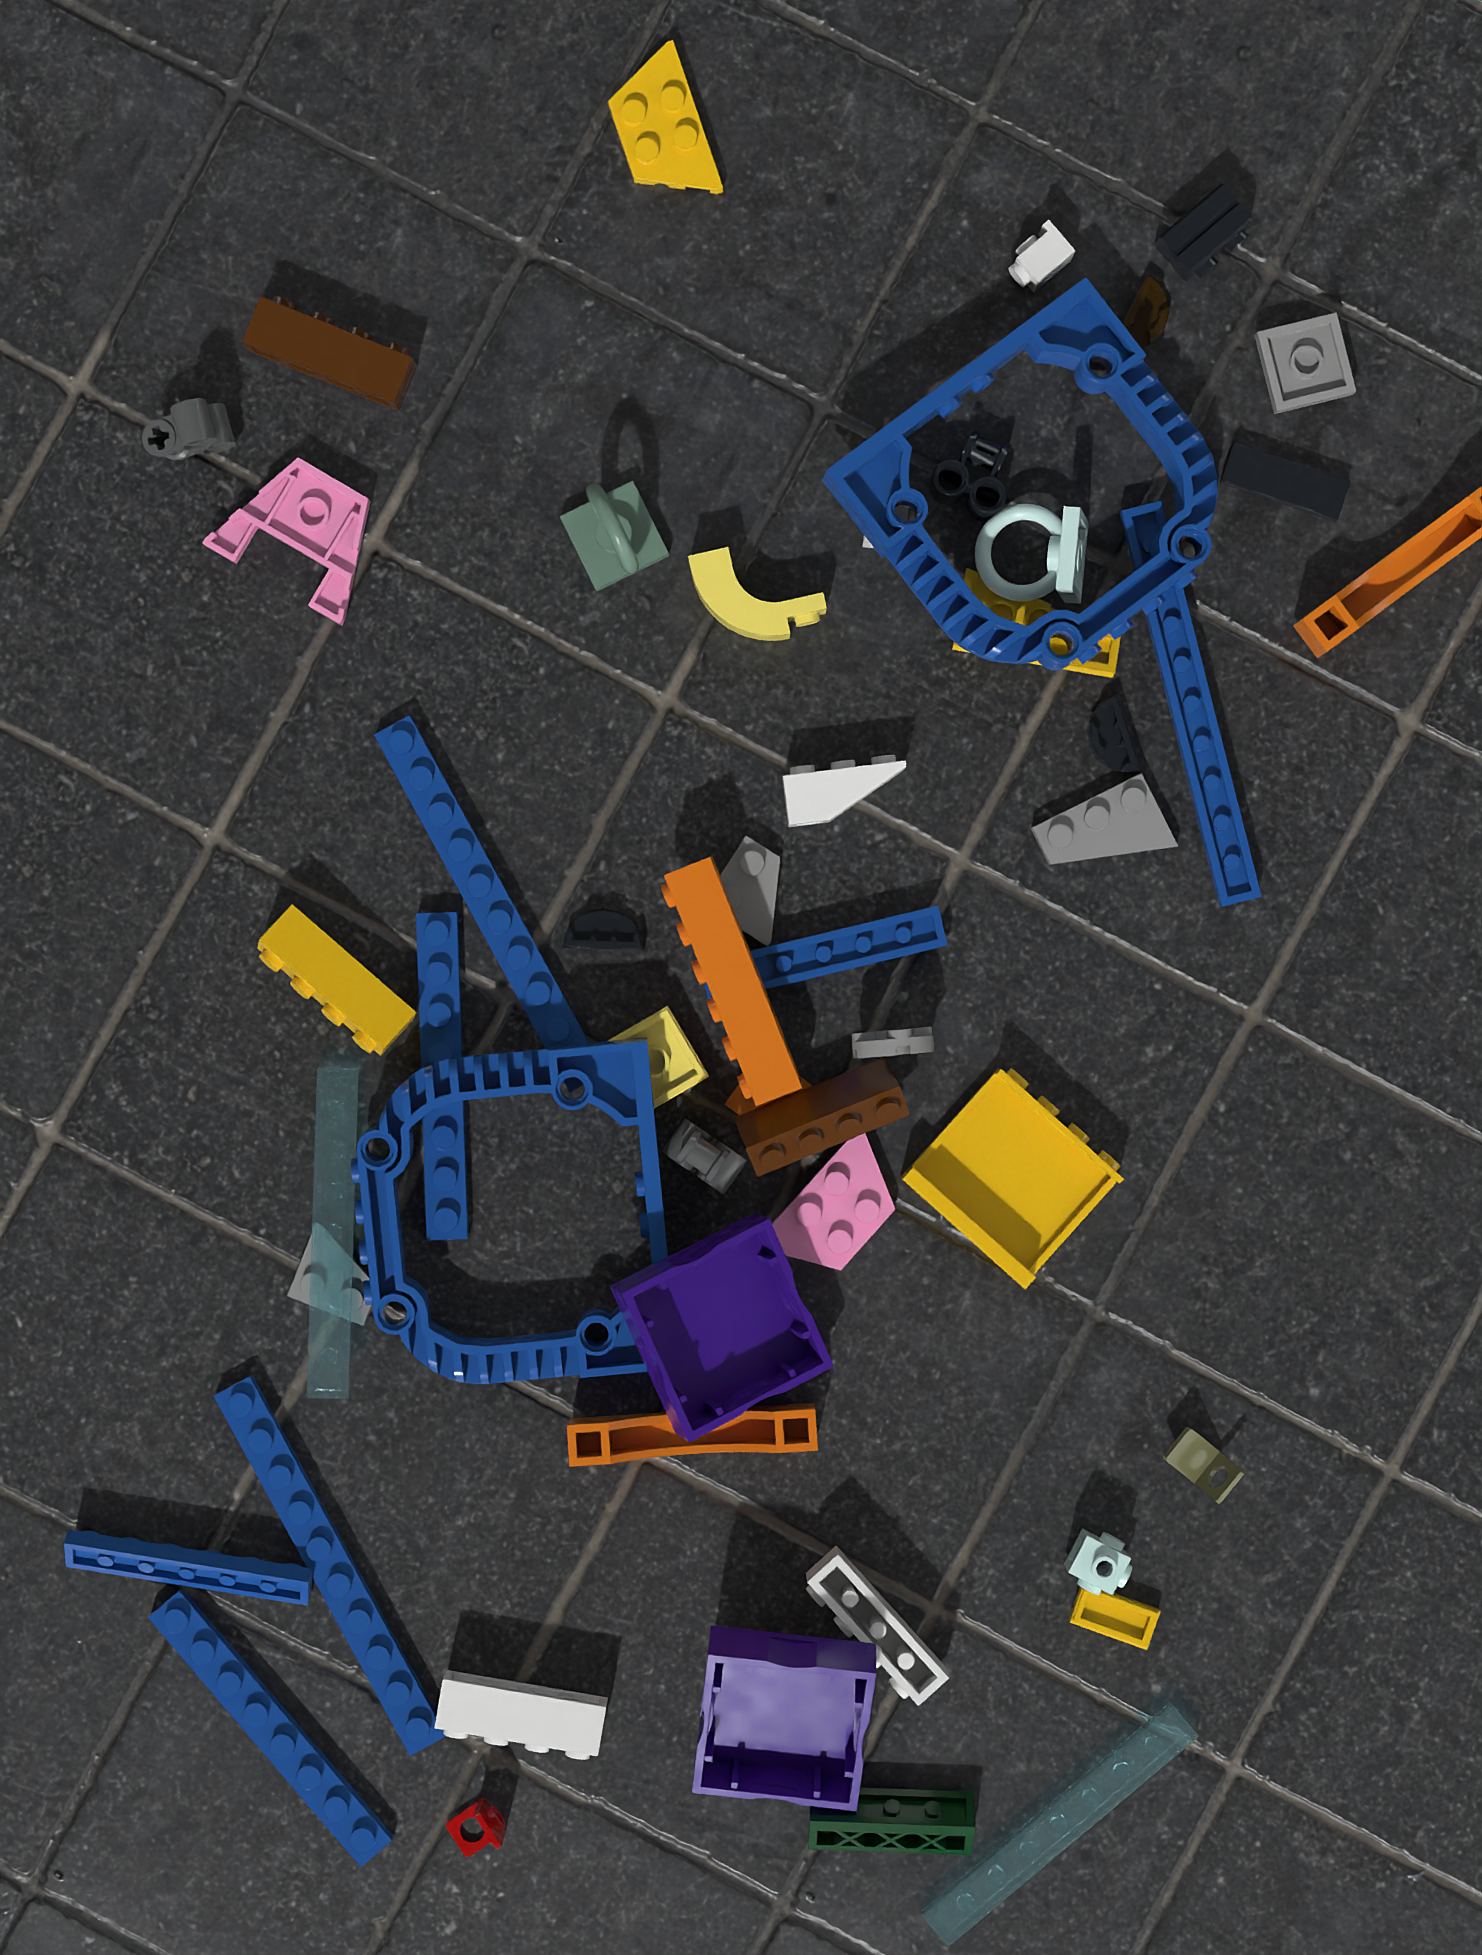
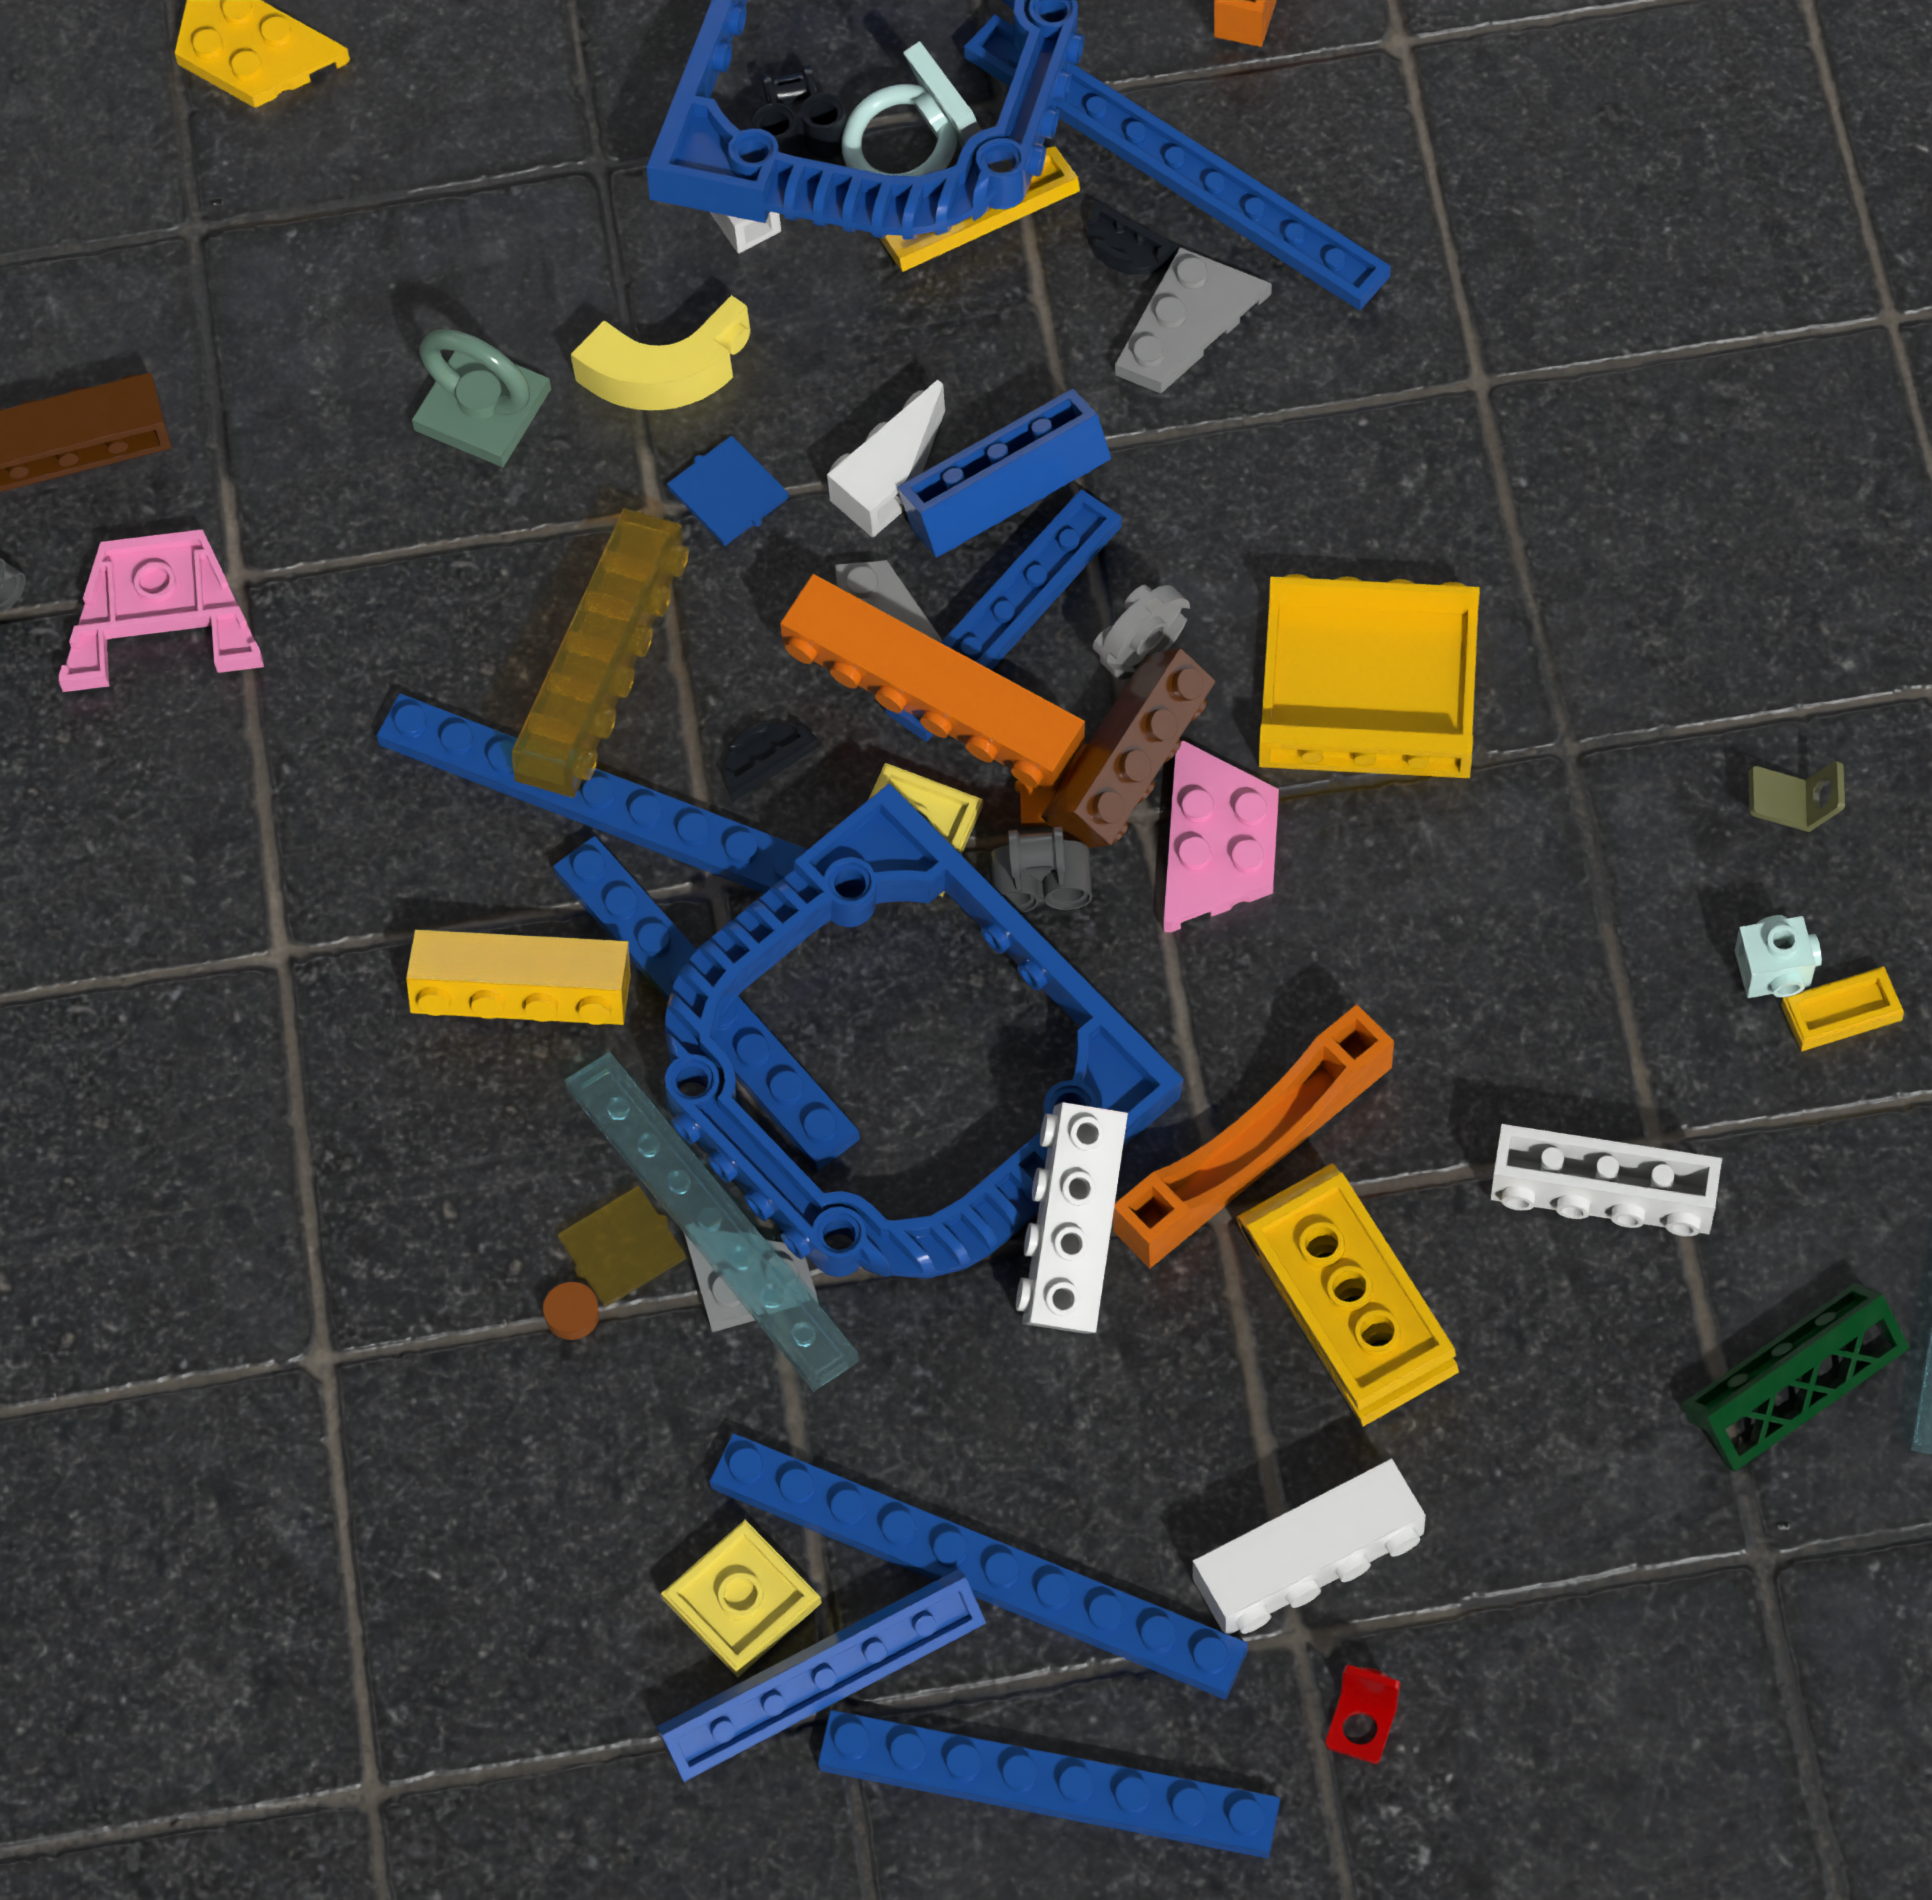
camera: 30 degrees left, 25 degrees down
(178, 1482) = (741, 1598): none -> light yellow plate
(214, 1220) = (571, 1310): none -> dark orange tile
(275, 1199) = (621, 1246): none -> clear yellow piece
(540, 1411) = (1073, 1218): none -> white brick
(549, 790) = (599, 654): none -> clear yellow brick
(695, 1514) = (1325, 1217): none -> yellow hinge
(721, 1326) = (1192, 997): dark purple tile -> none
(723, 722) = (728, 490): none -> blue piece
(784, 1717) = (1587, 1326): tile -> none
(897, 859) = (1004, 473): none -> blue brick

